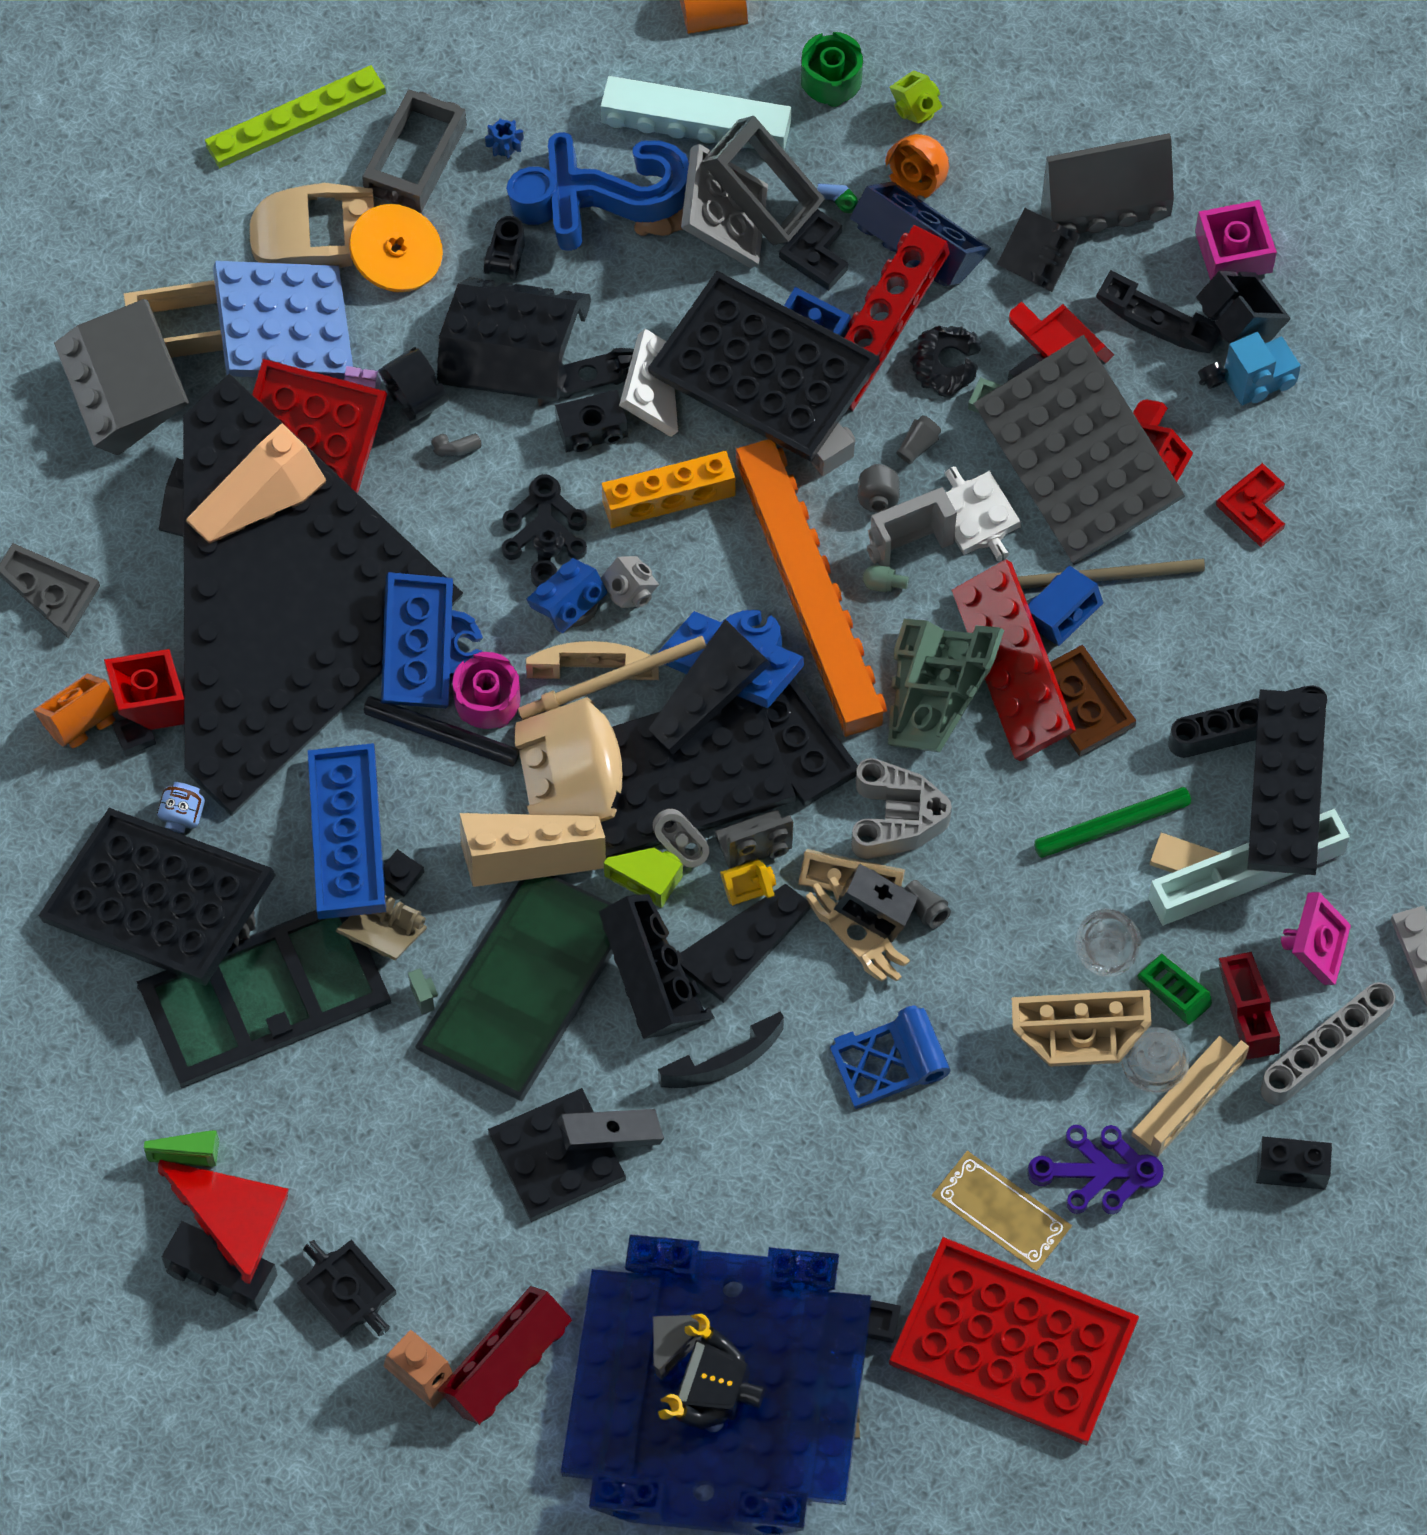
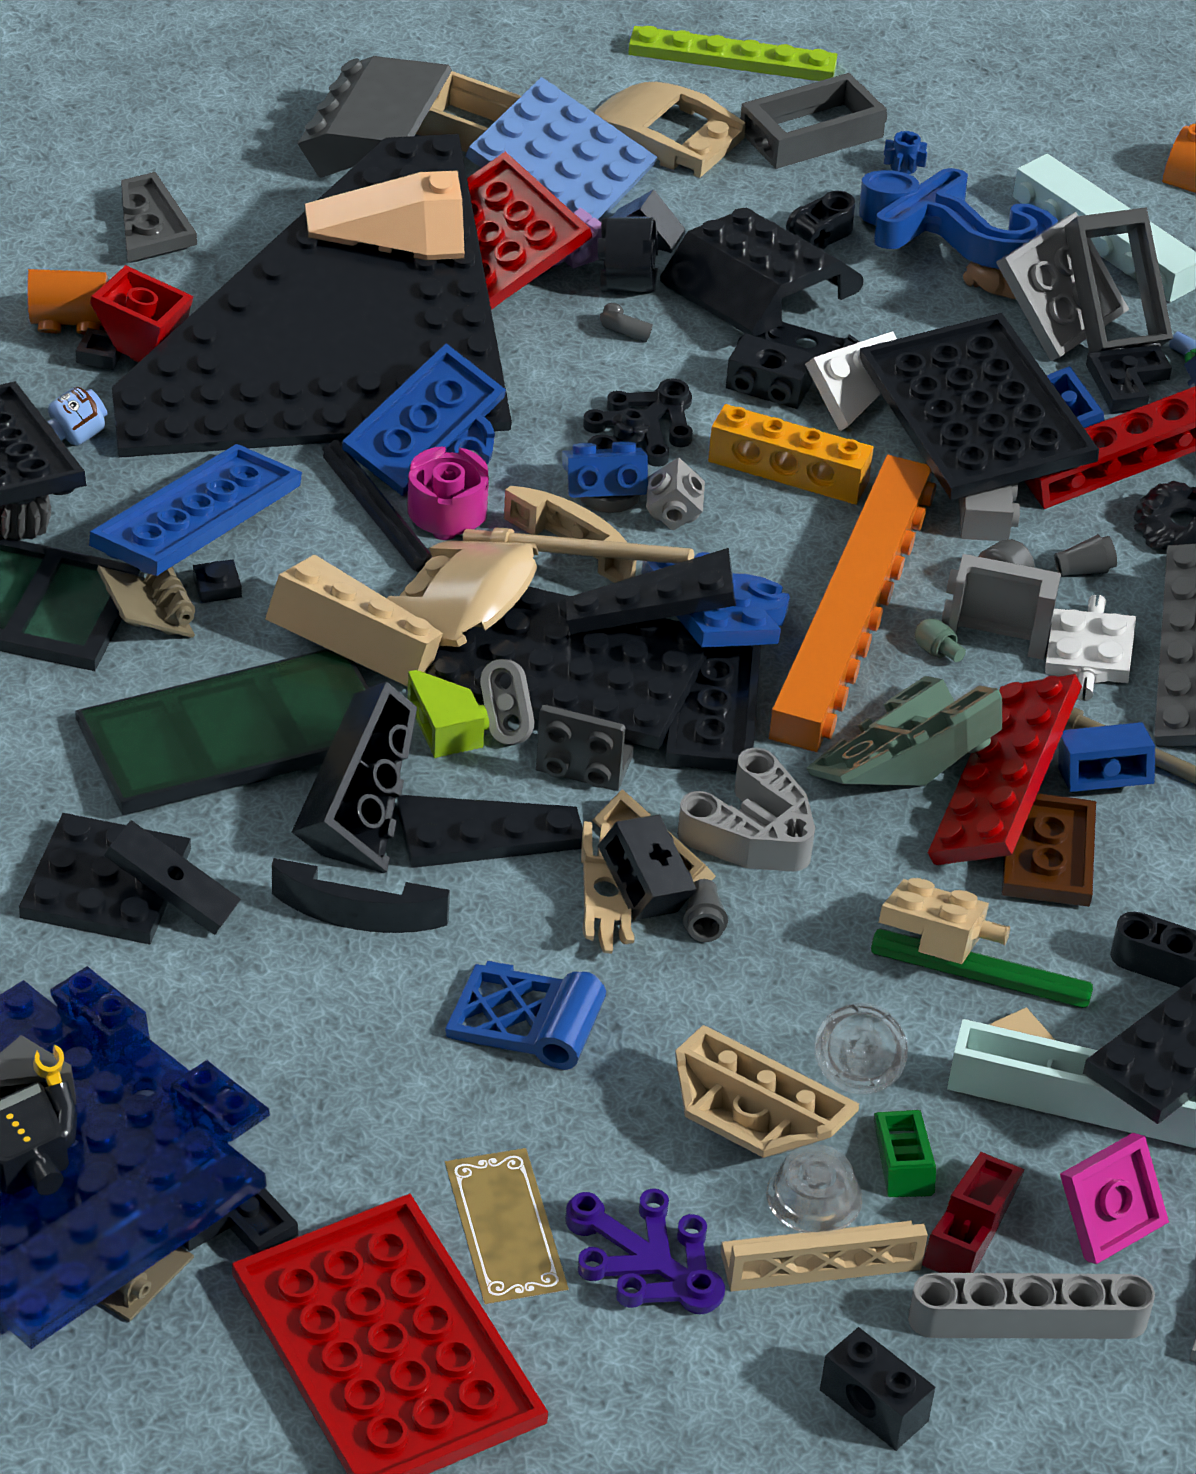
camera: 35 degrees right, 20 degrees down
(385, 338) = (668, 226): none -> slope
(400, 270) = (712, 146): light orange piece -> none
(423, 990) = (128, 670): sand green plate -> none
(748, 882) = (537, 779): yellow bracket -> none
(1071, 810) = (946, 920): none -> tan plate

